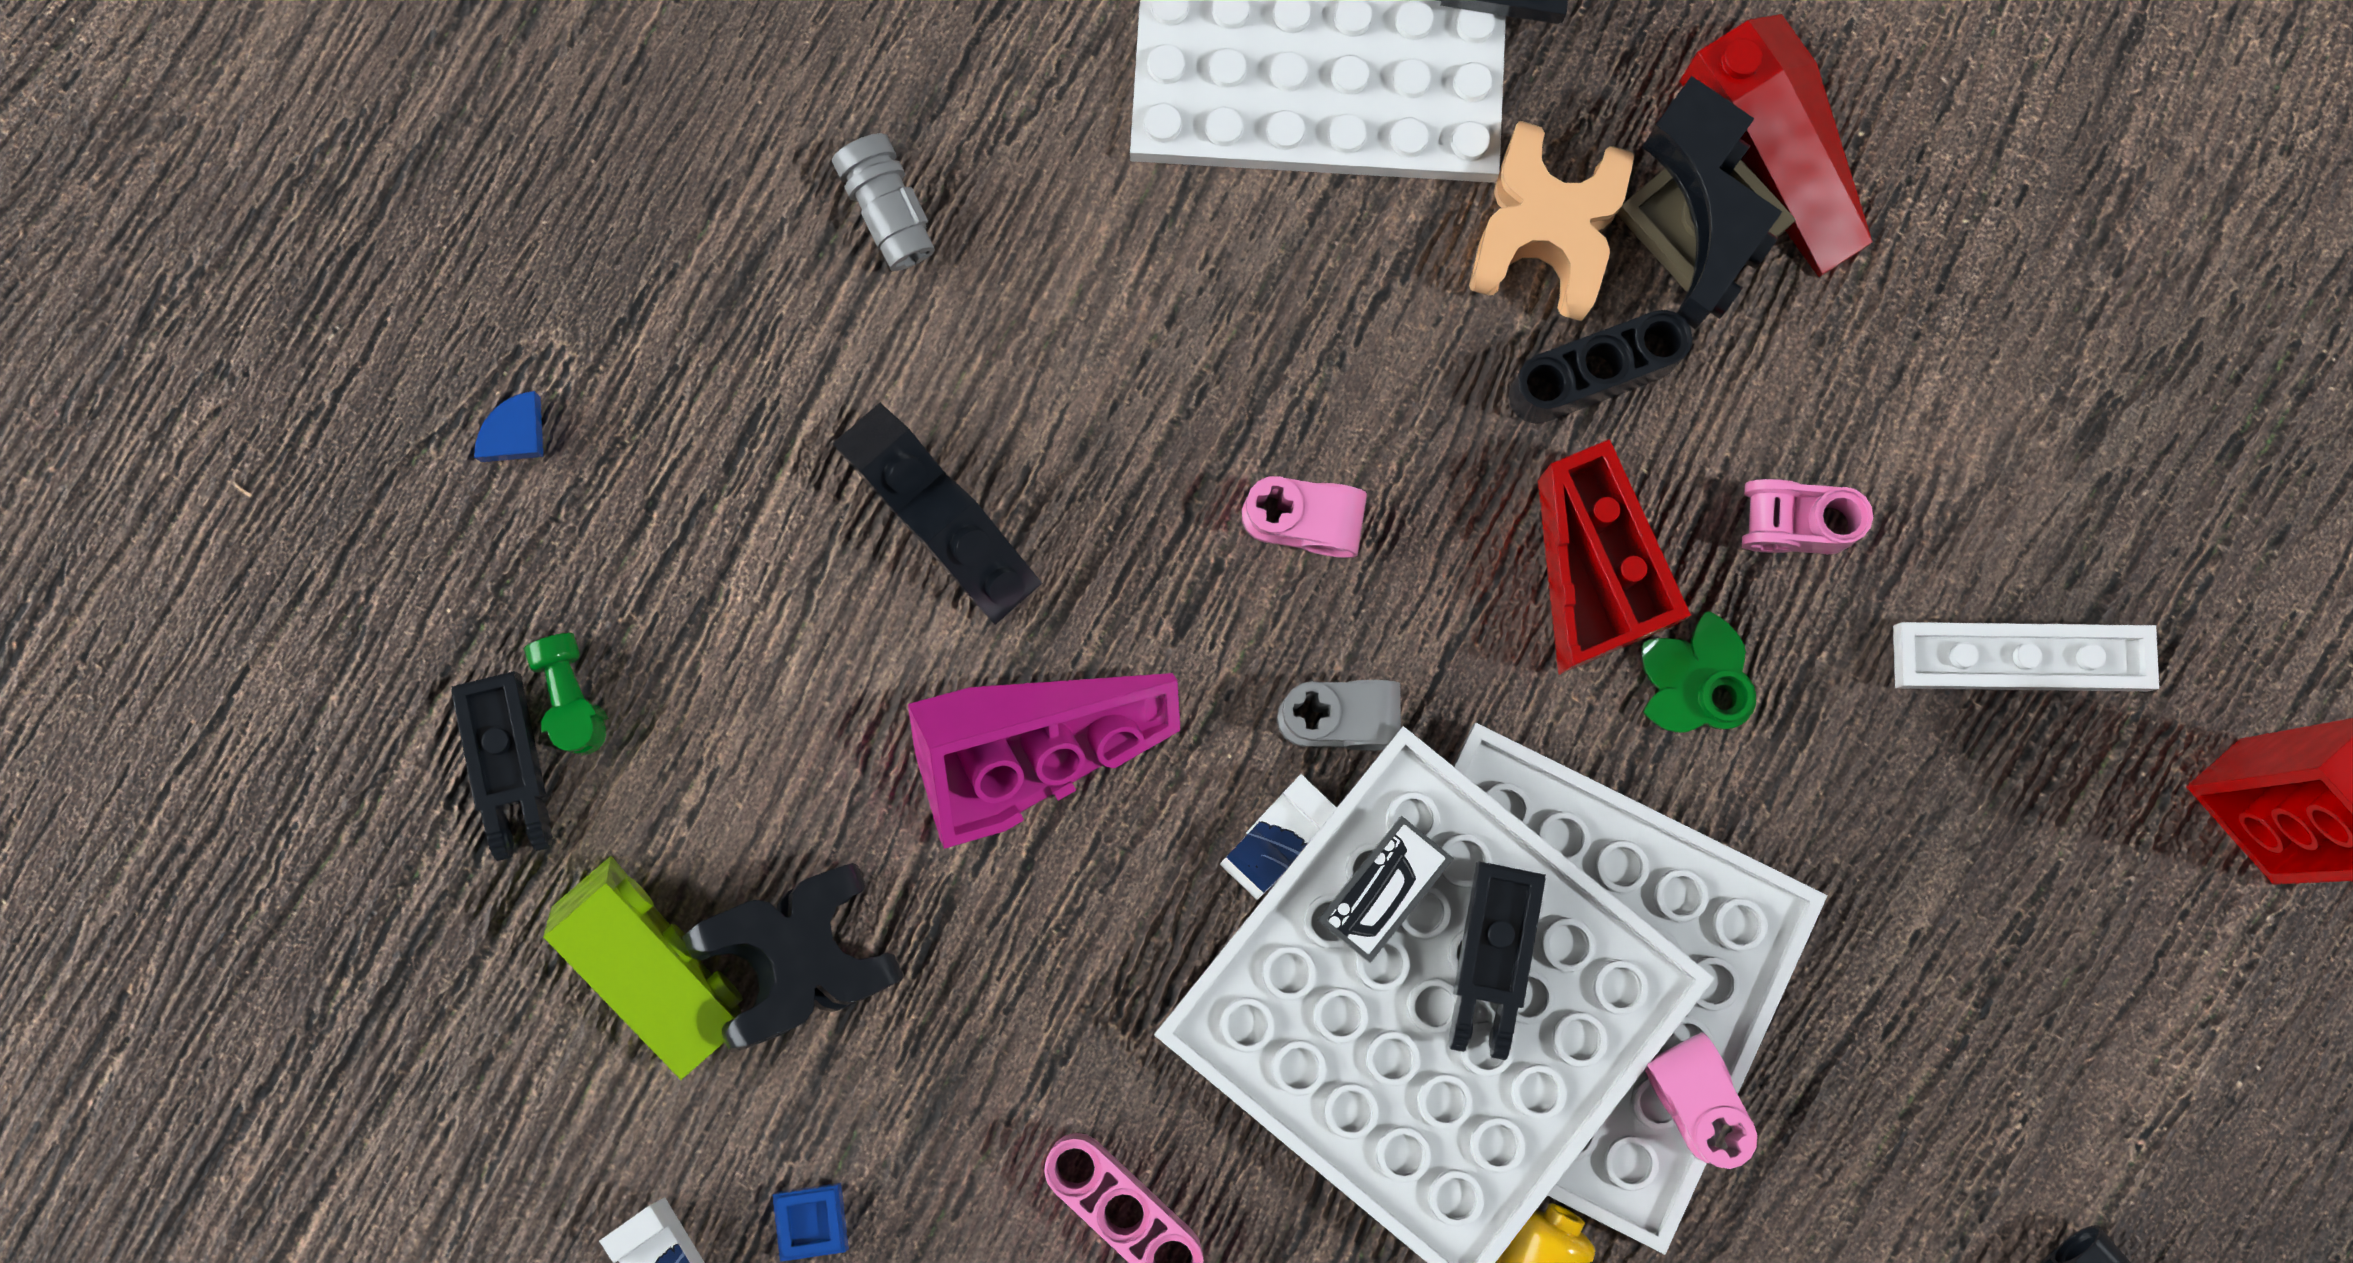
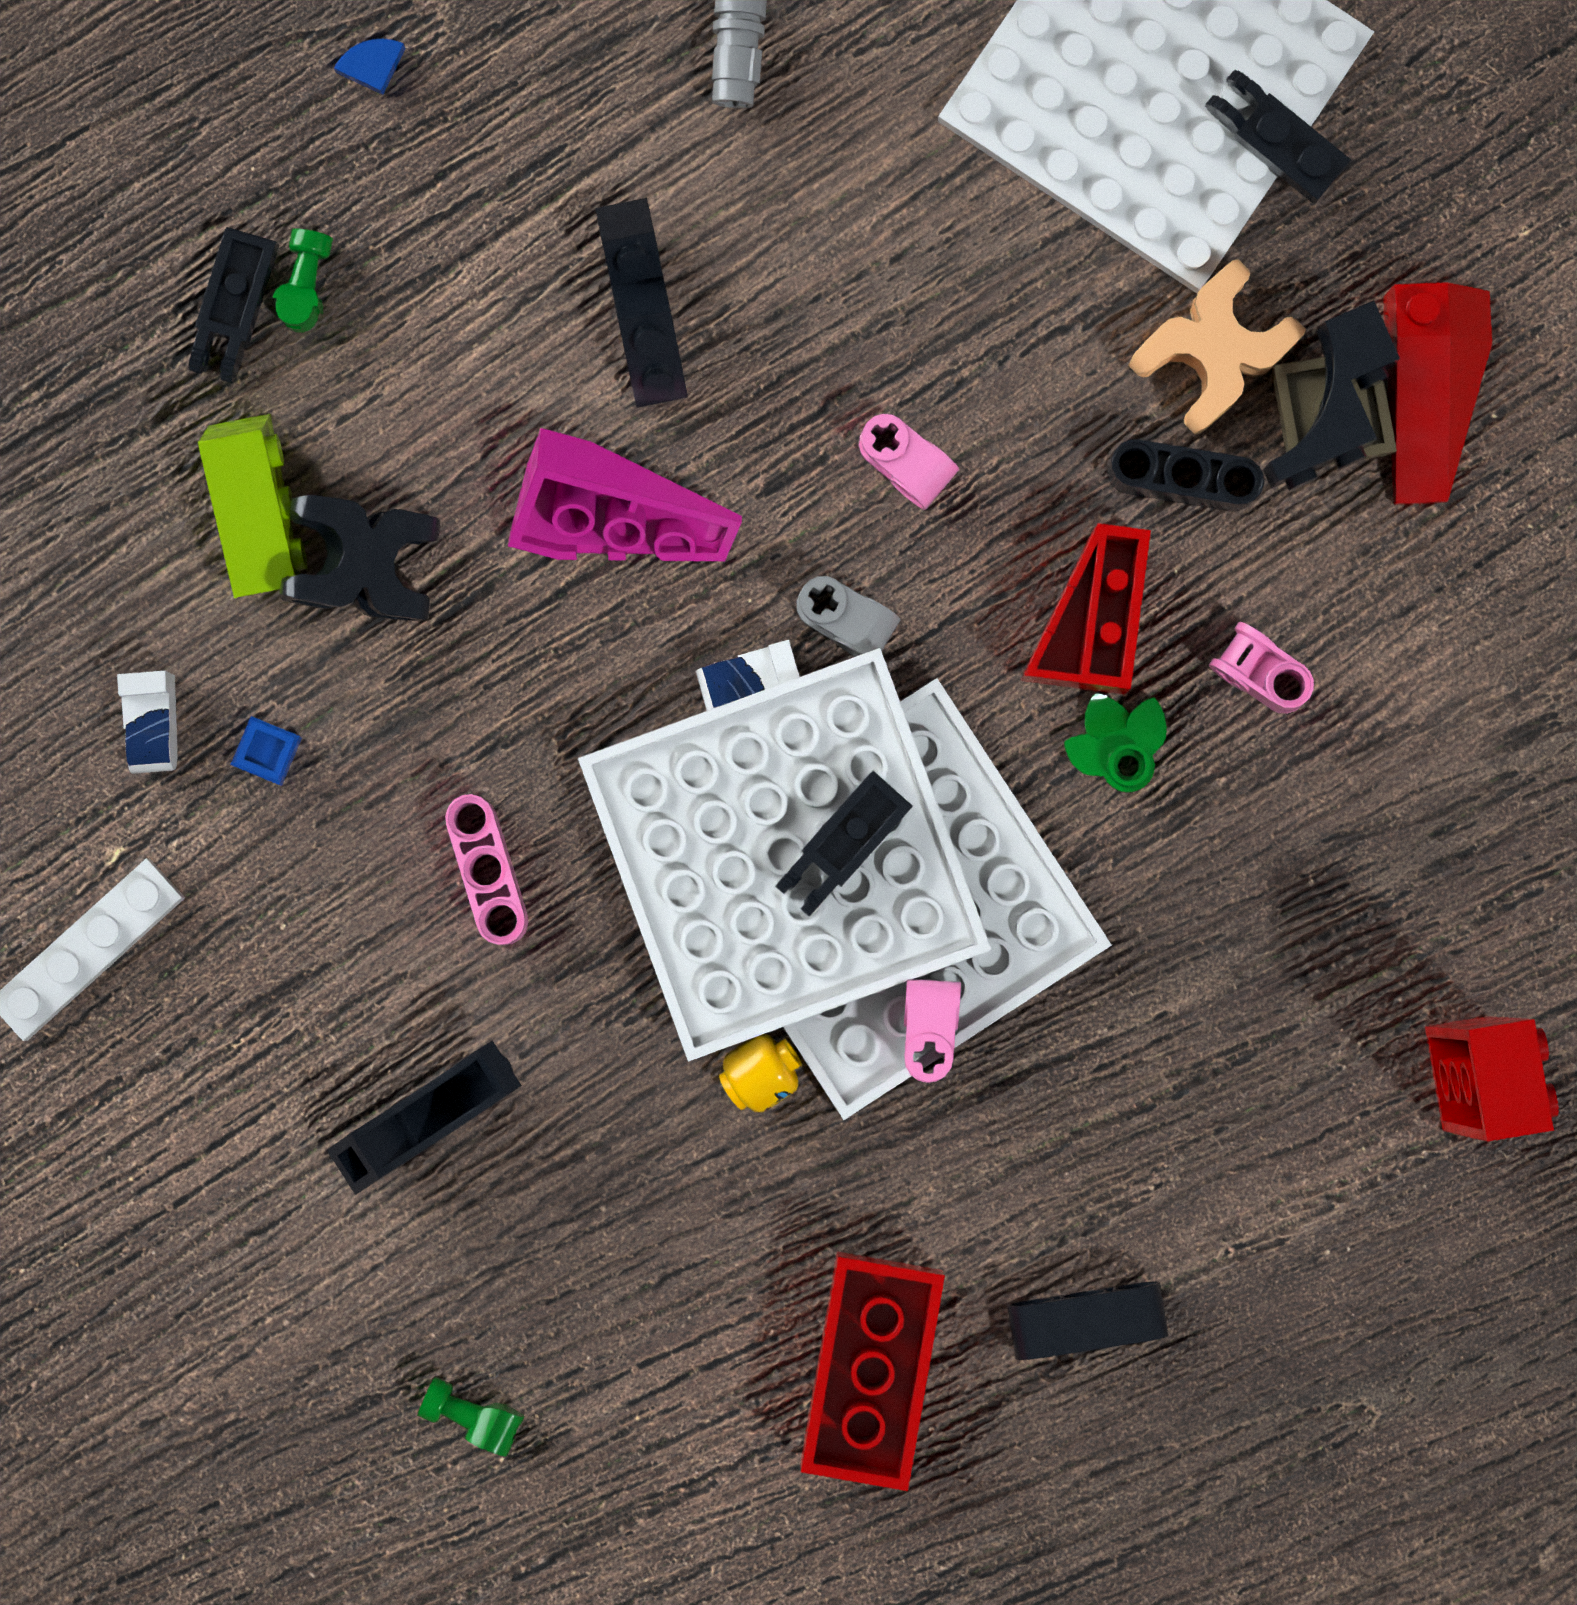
camera: 30 degrees right, 5 degrees up
(1385, 889) = (797, 752): tile -> none
(2025, 656) = (1363, 864): white plate -> none

